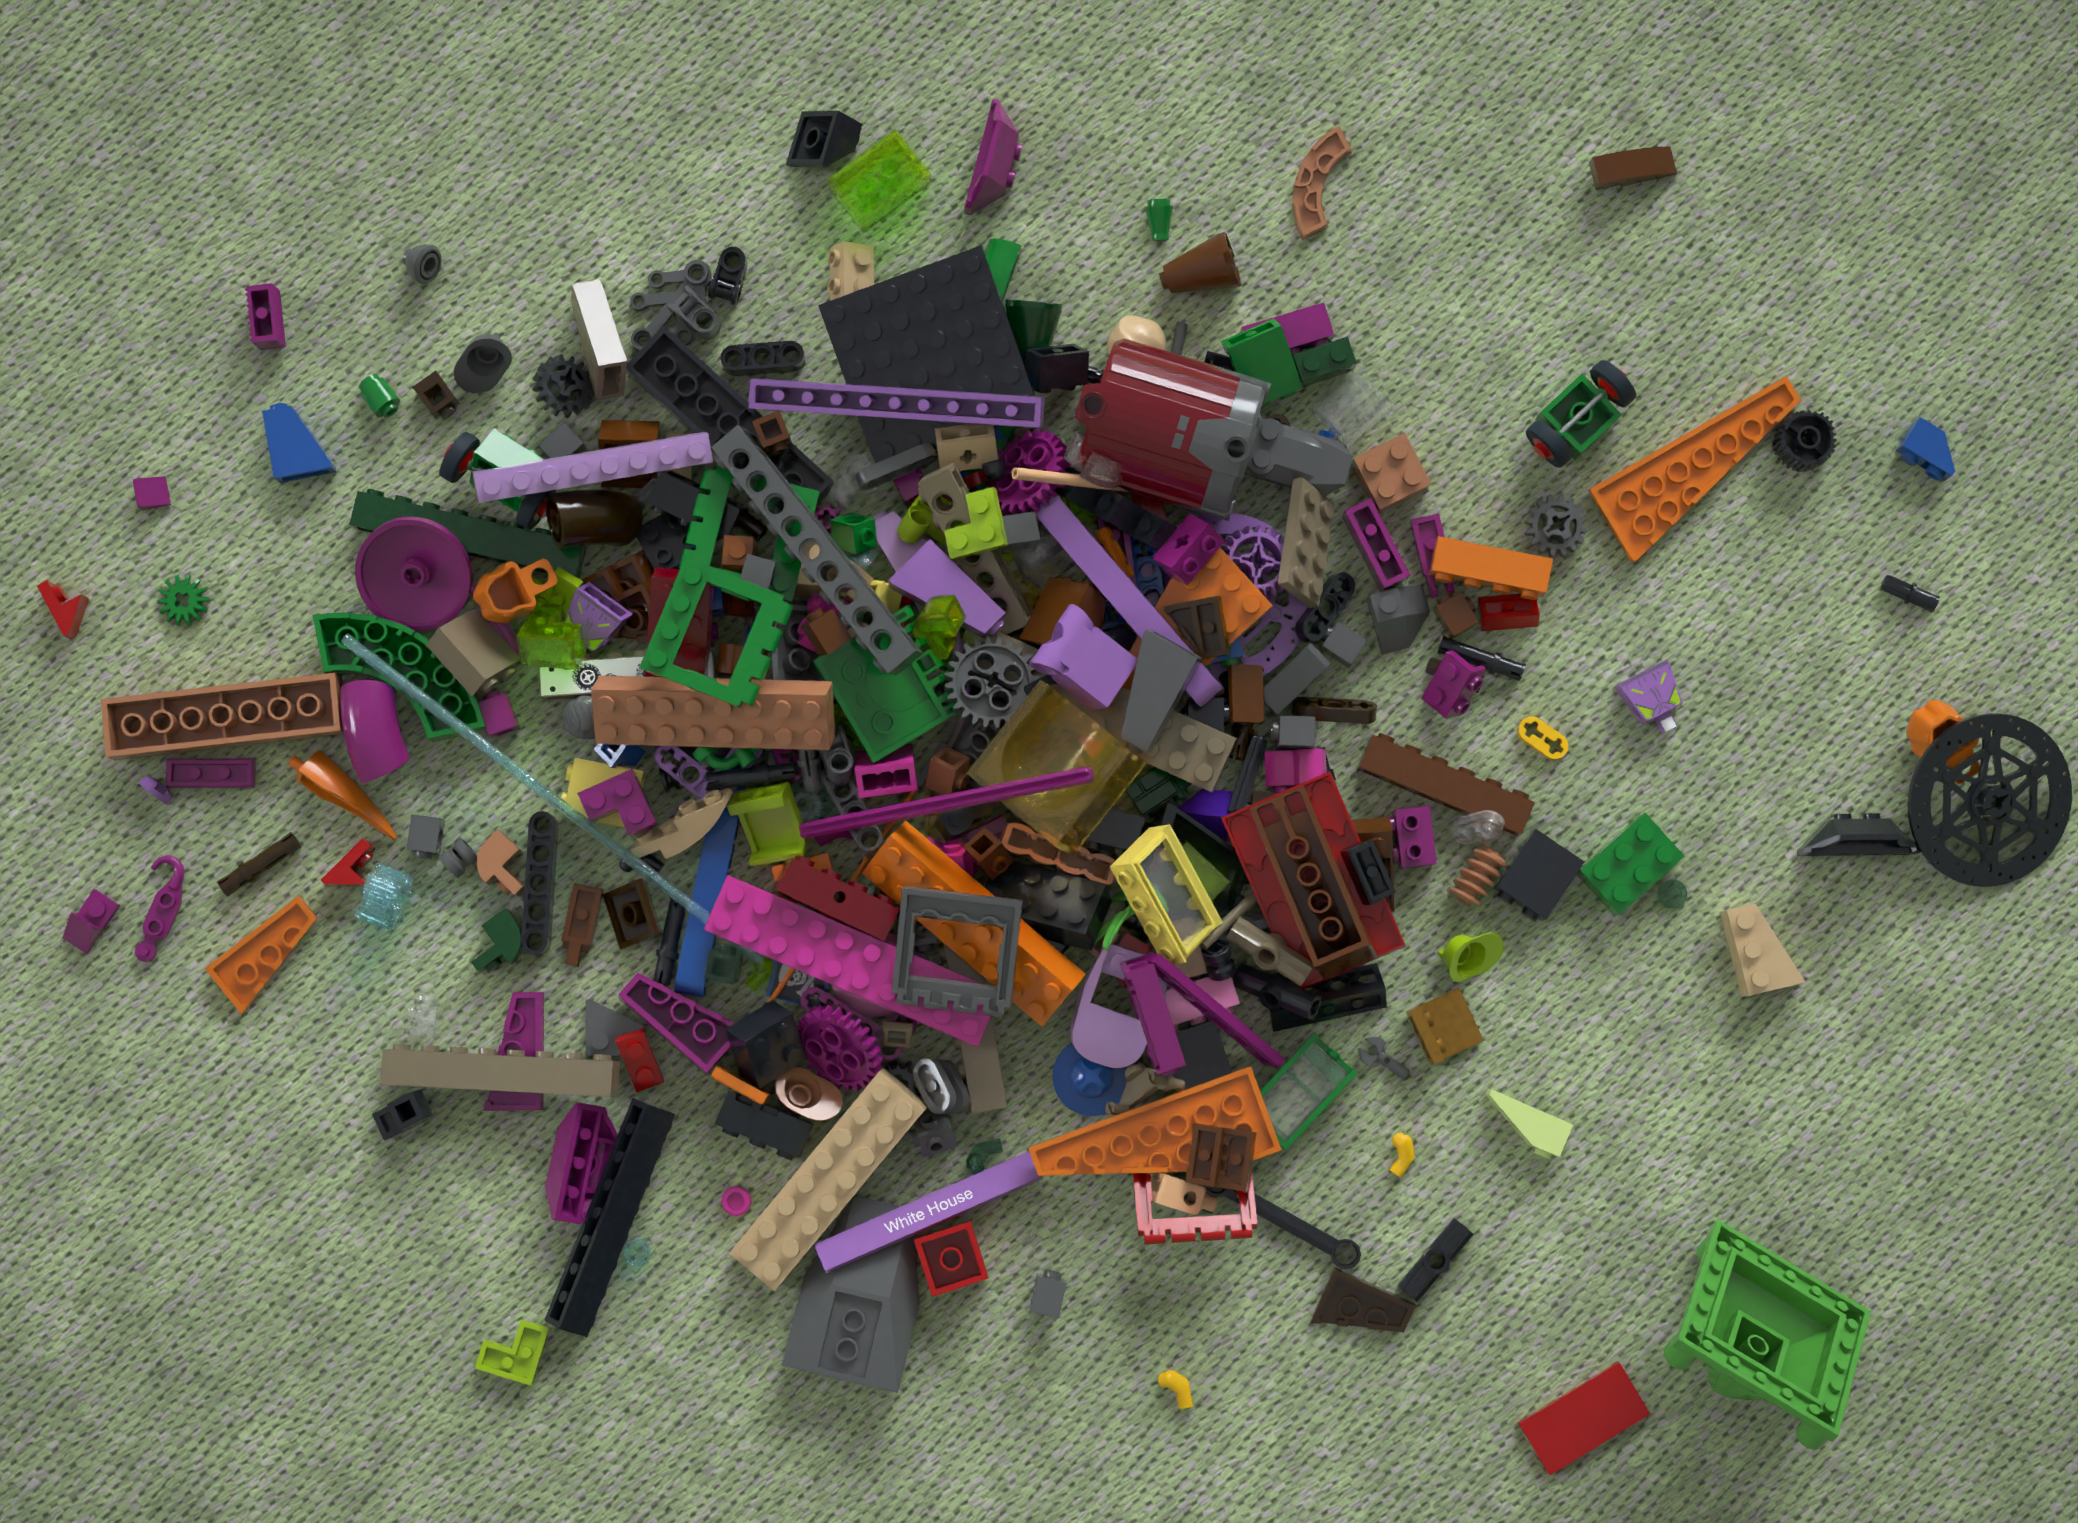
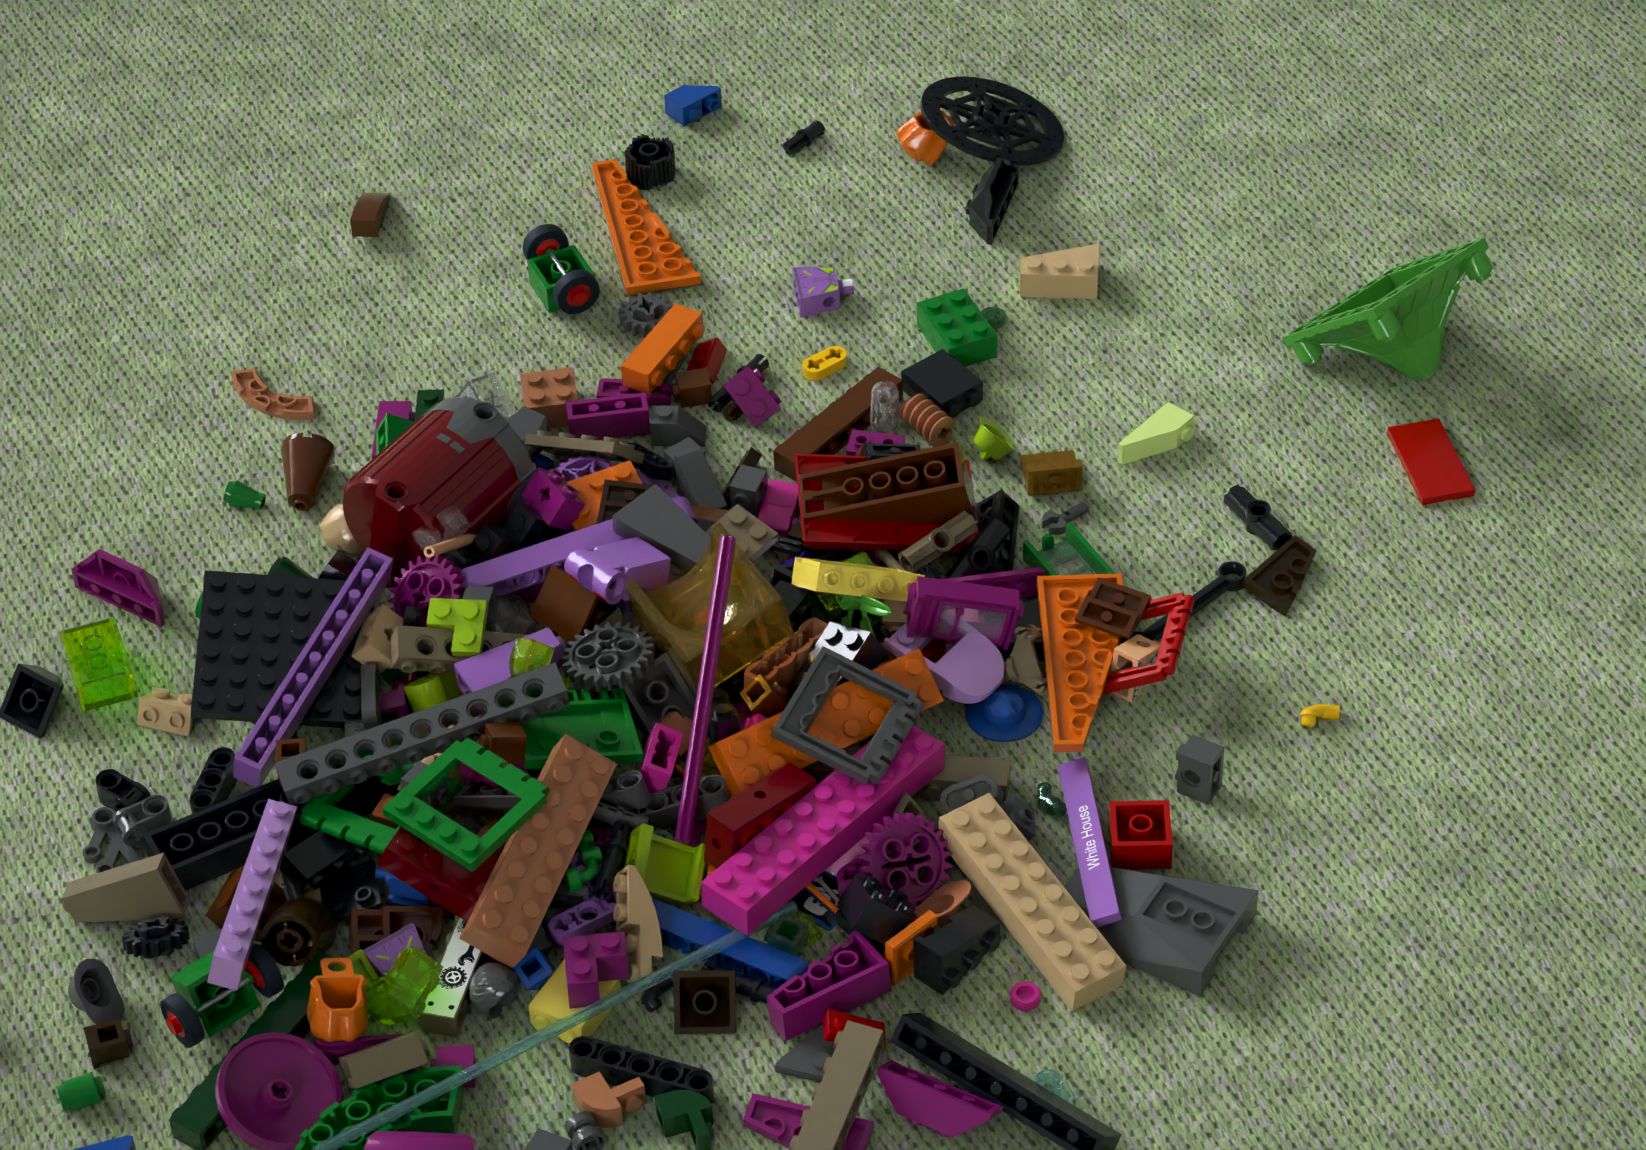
camera: 65 degrees left, 40 degrees down
(581, 921) = (696, 1051): reddish brown hinge -> none
(1405, 1153) = (1157, 520): yellow arm -> none

